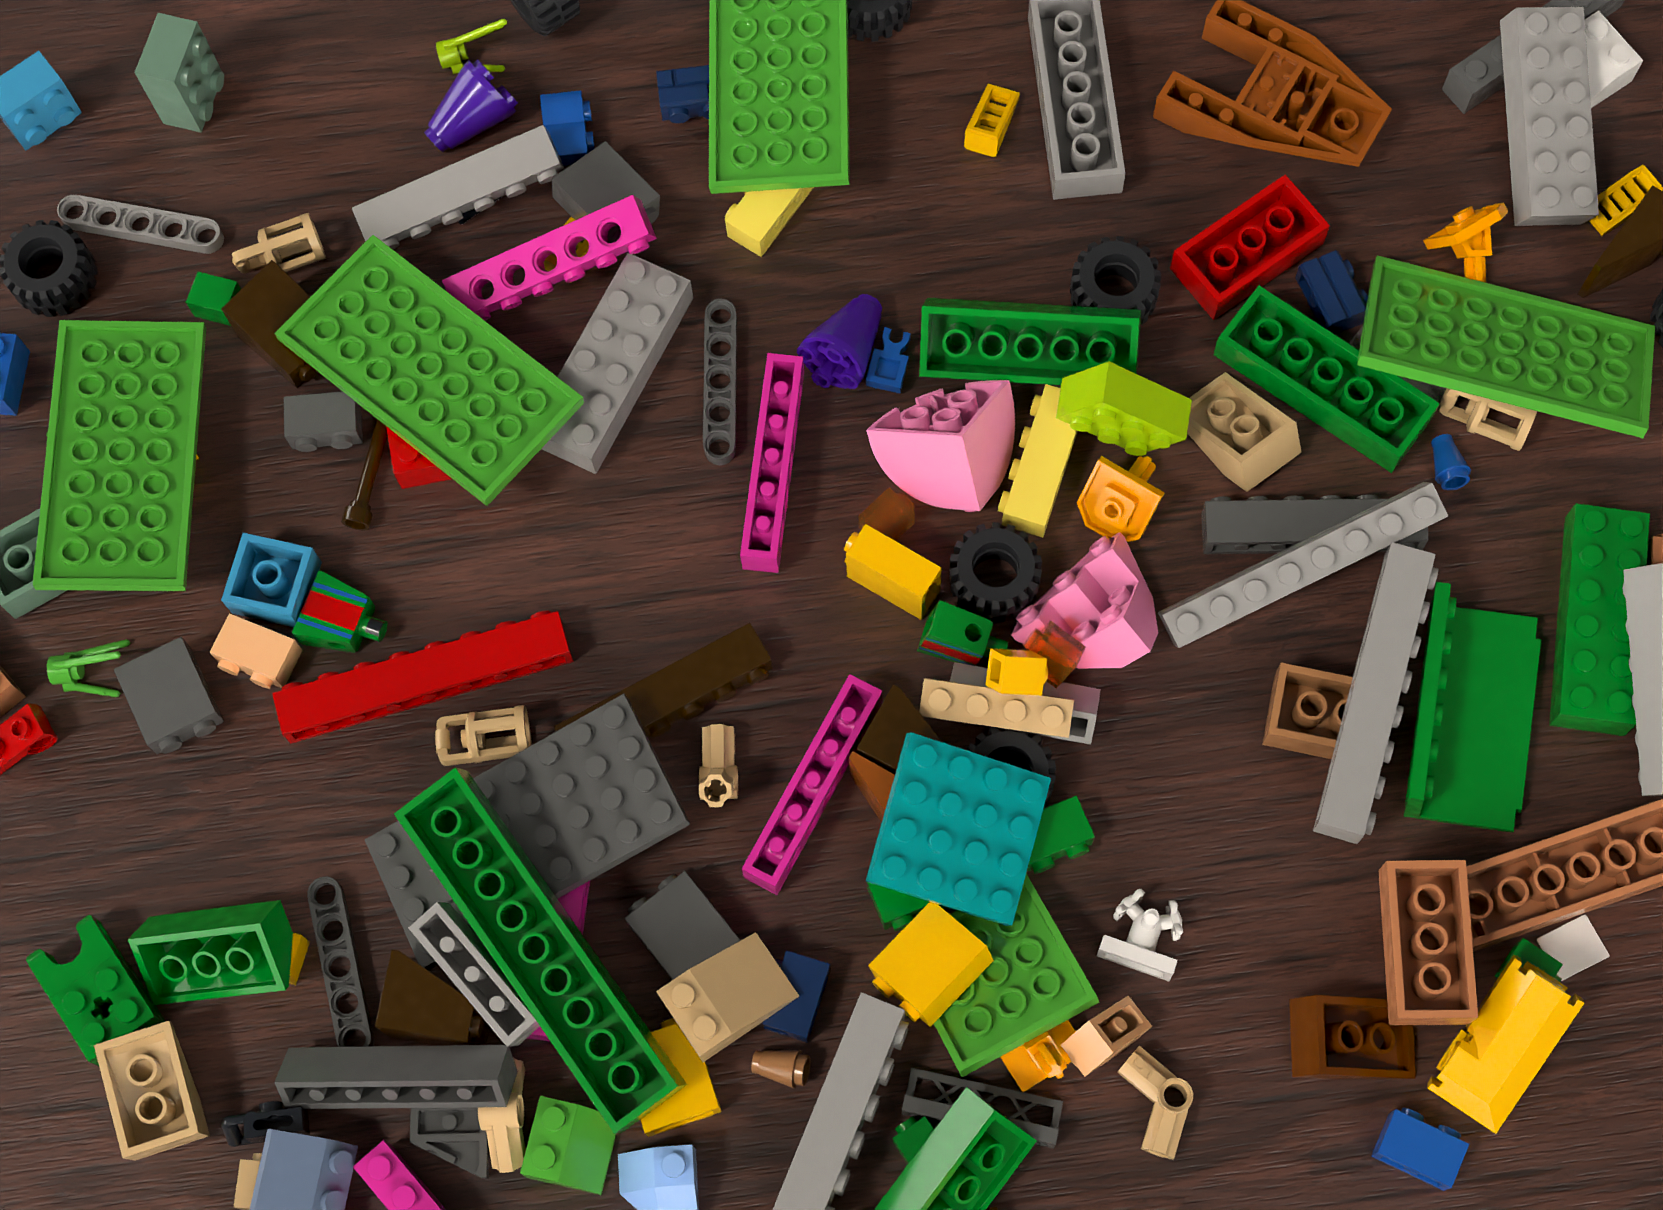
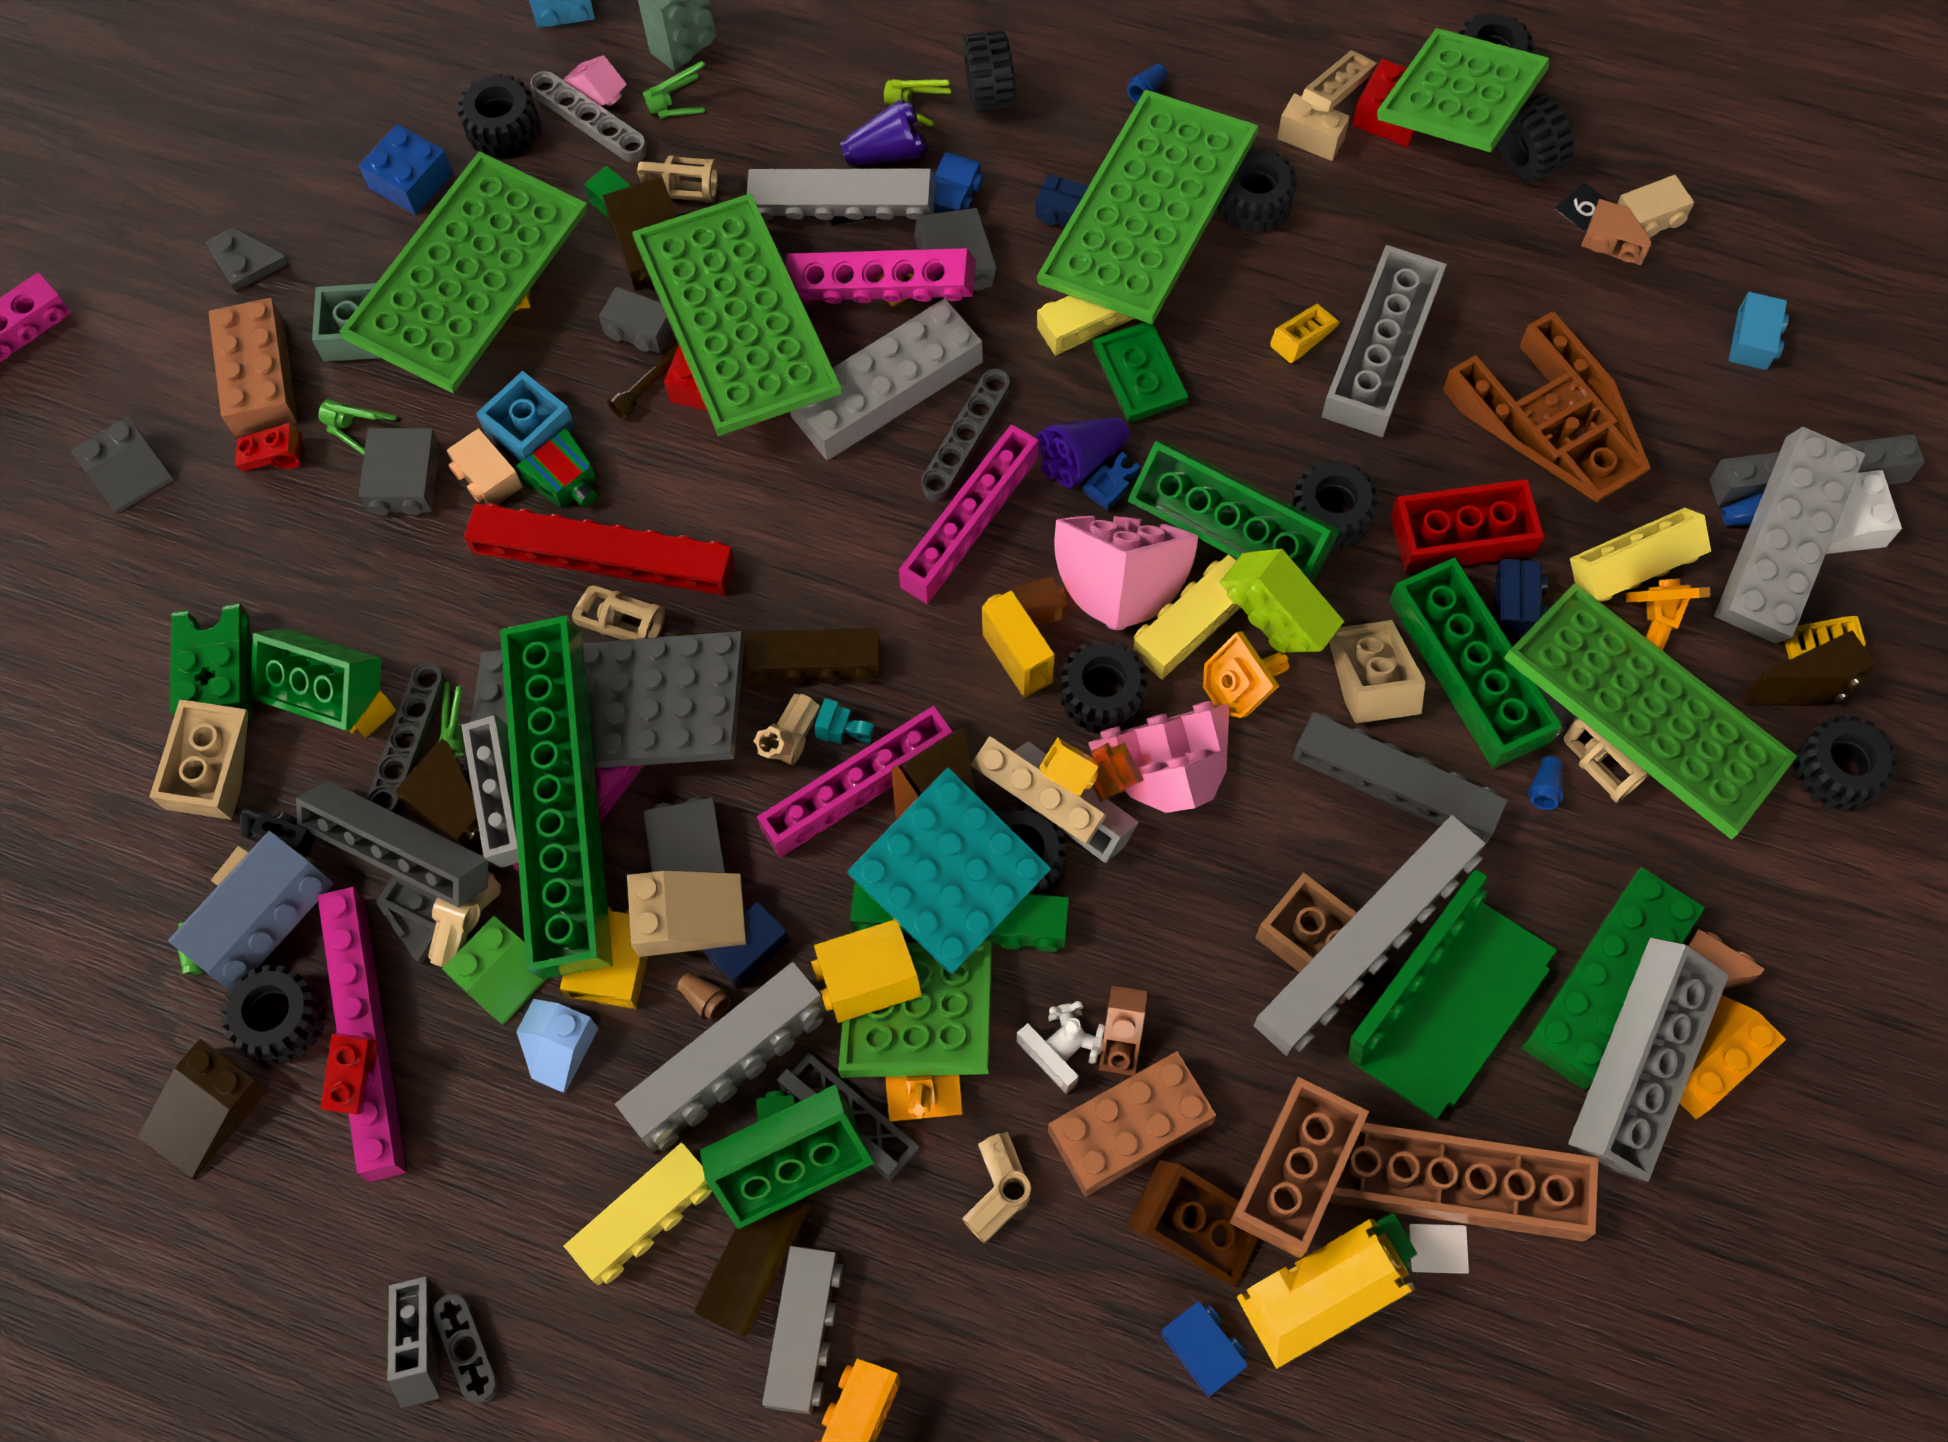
camera: 25 degrees right, 5 degrees down
(128, 182) = (597, 81): none -> bright pink slope
(206, 172) = (658, 97): none -> bright green plant
(388, 936) = (452, 731): none -> bright green plant
(757, 736) = (836, 721): none -> teal piece
(856, 236) = (1140, 371): none -> green plate
(958, 635) = (1042, 719): green torso -> none
(1106, 1035) = (981, 1106): light nougat brick -> none
(1191, 886) = (1123, 1030): none -> nougat slope
(1246, 979) = (1131, 1123): none -> nougat brick
(1303, 564) = (1368, 800): light grey brick -> none
(1422, 197) = (1641, 554): none -> light yellow brick
(1491, 109) = (1741, 512): none -> blue cone

